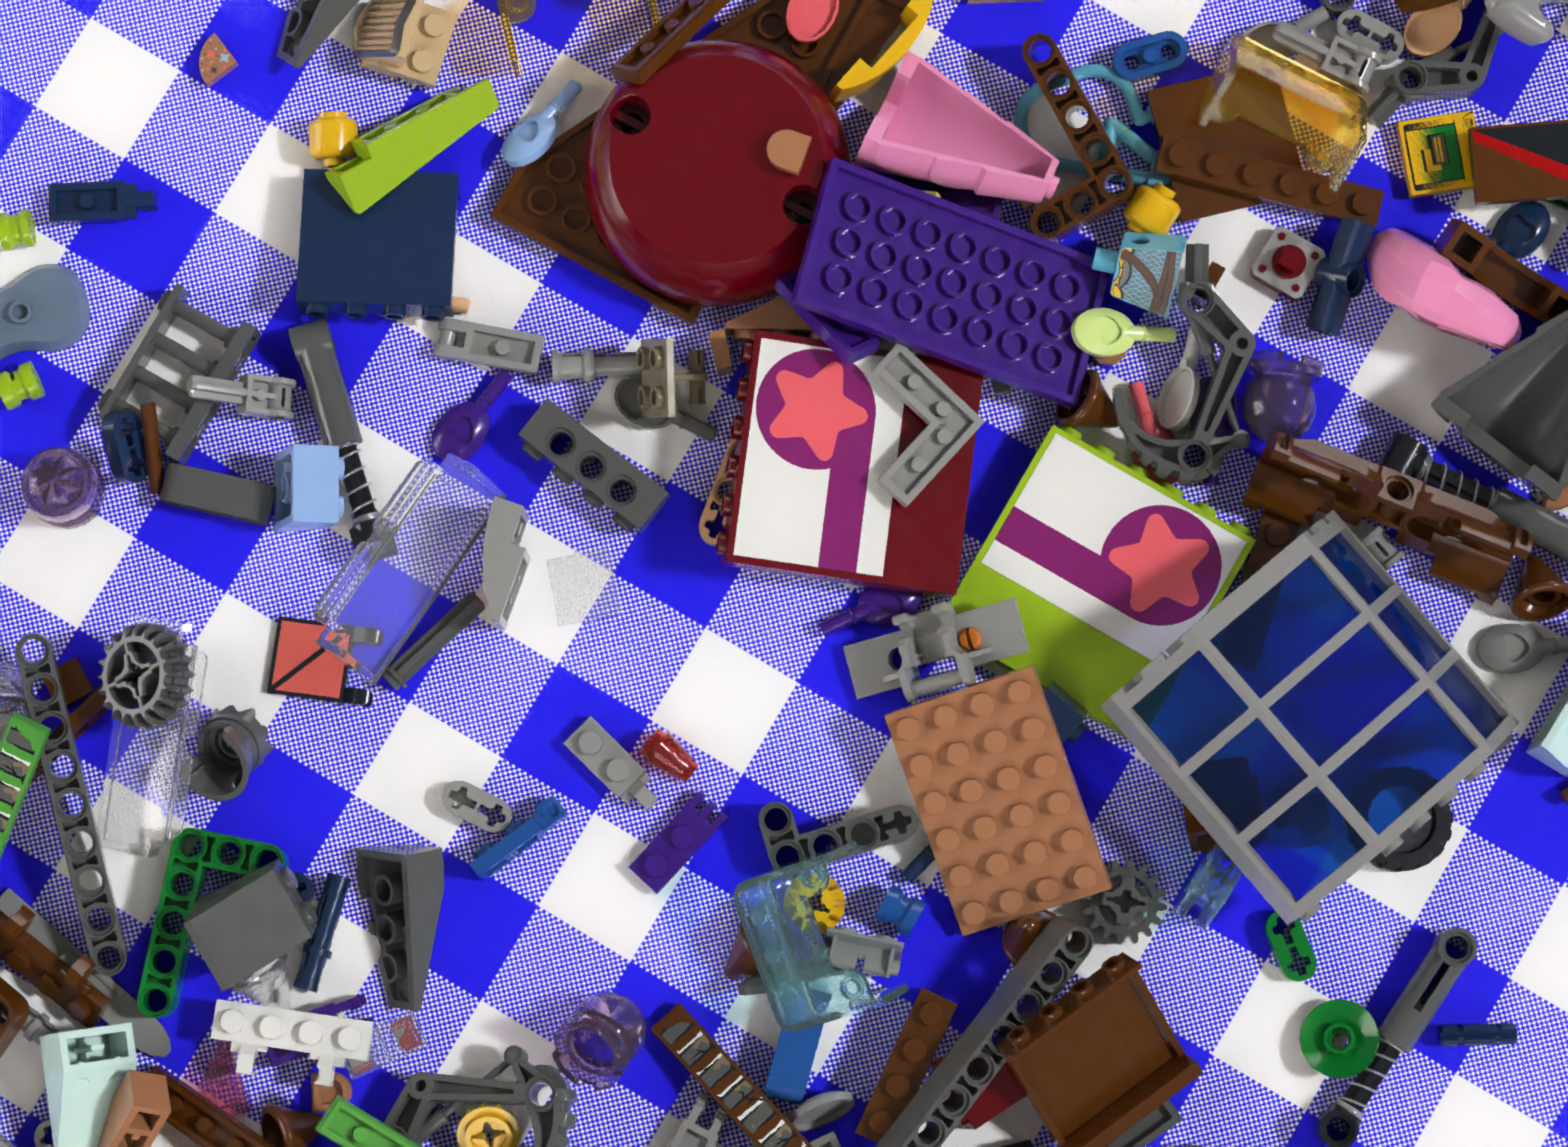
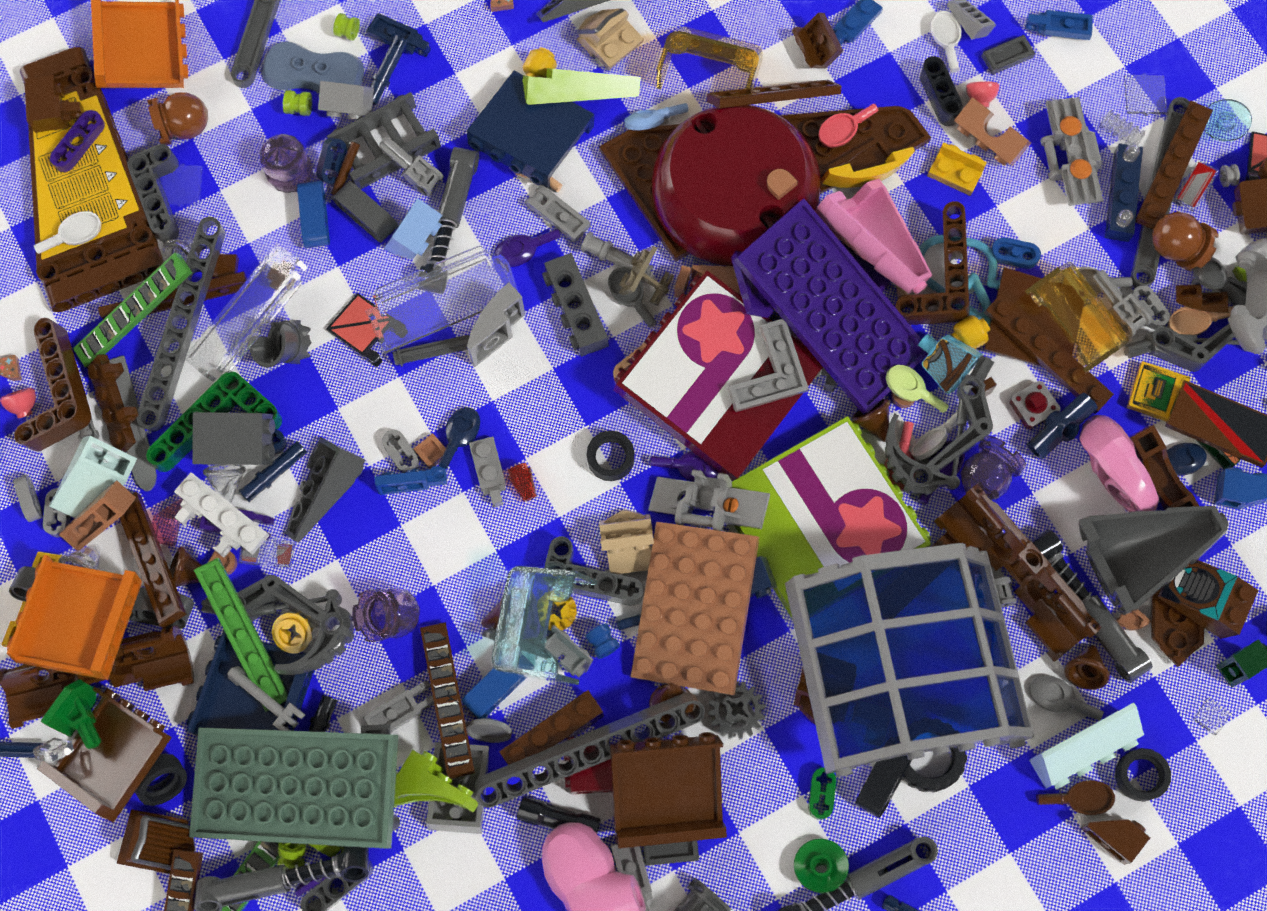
camera: 30 degrees right, 10 degrees down
(89, 345) = (345, 98): none -> light grey brick
(117, 267) = (387, 67): none -> dark blue pin
(145, 675) = (261, 274): dark grey gear -> none
(147, 538) = (313, 214): none -> blue beam
(518, 782) = (430, 451): none -> nougat tile
(542, 734) = (460, 431): none -> dark blue piece
(583, 587) = (532, 367): clear piece -> none
(677, 843) = (499, 533): dark purple hinge -> none
(755, 625) = (606, 437): none -> black tyre
(855, 757) = (627, 540): none -> tan piece
(1209, 887) = (791, 728): clear light blue wheel -> none
(1361, 902) = (882, 785): none -> black beam

